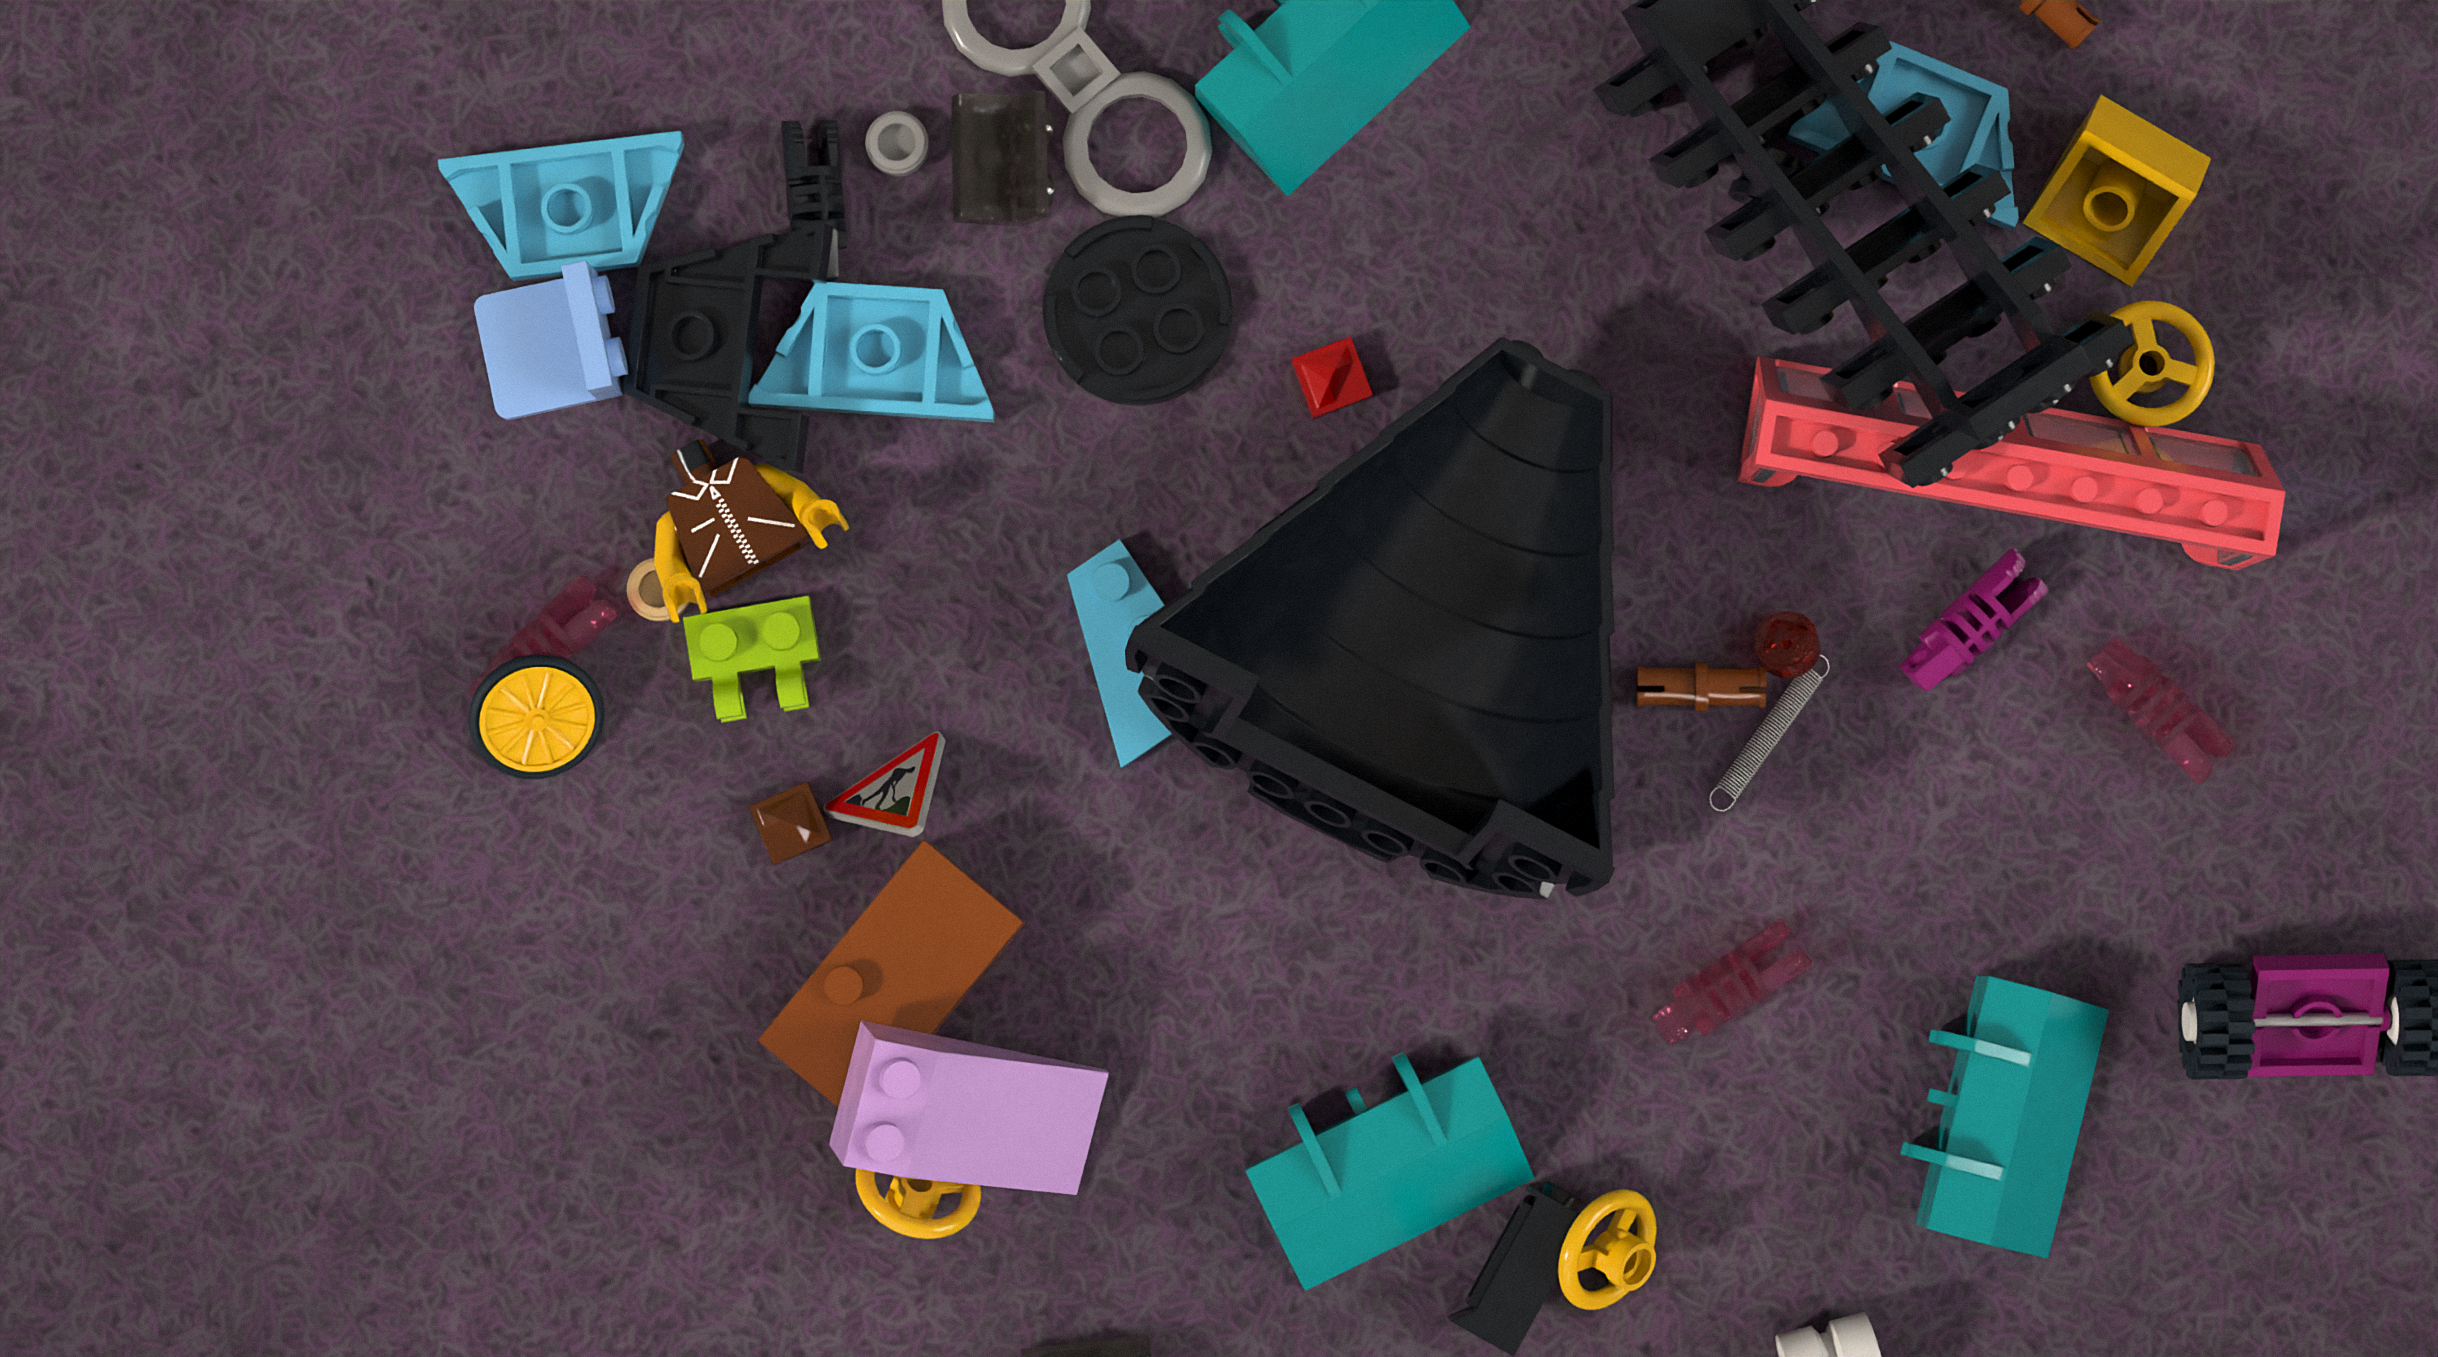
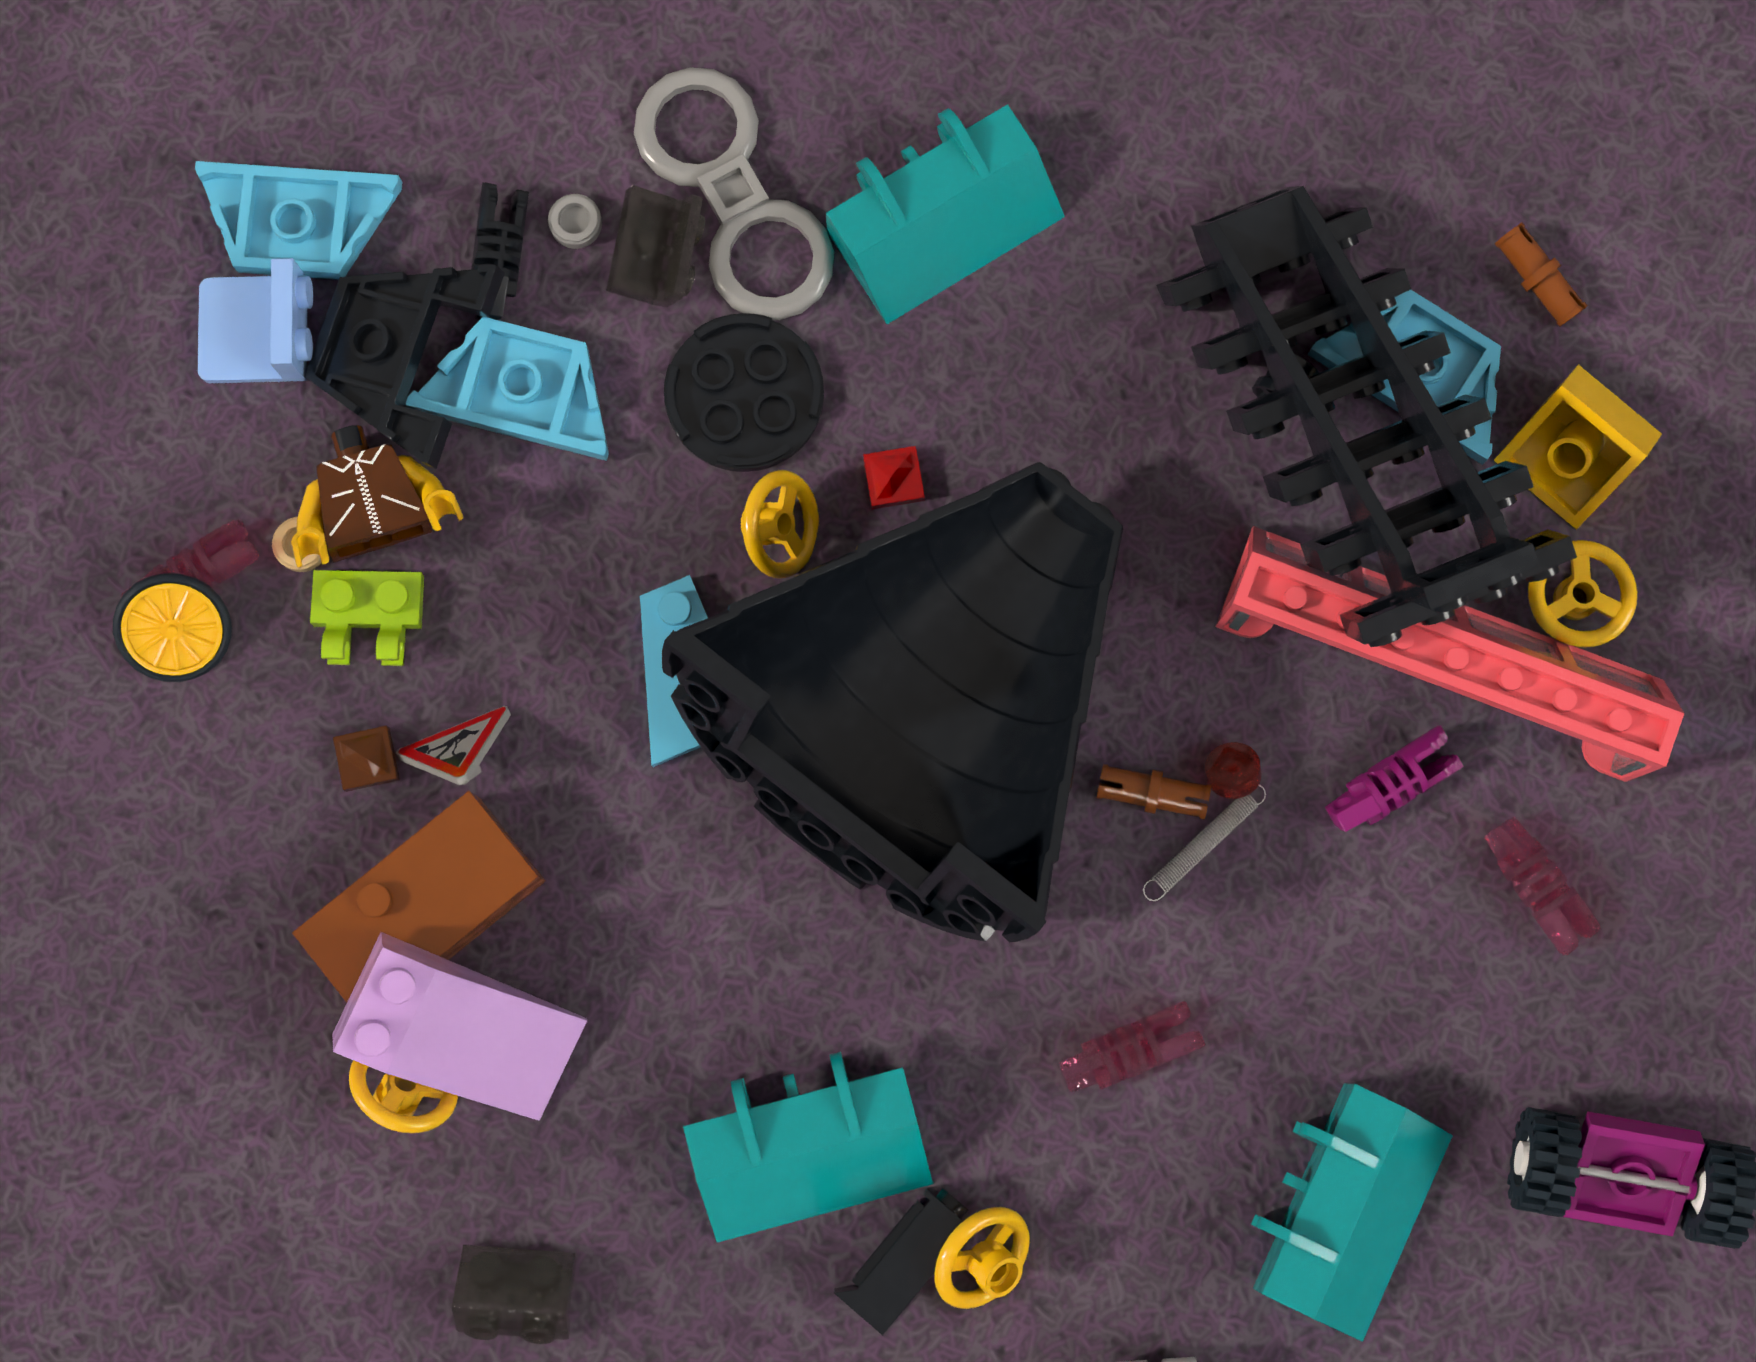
camera: 10 degrees right, 5 degrees down
(1206, 460) = (775, 524): none -> yellow piece

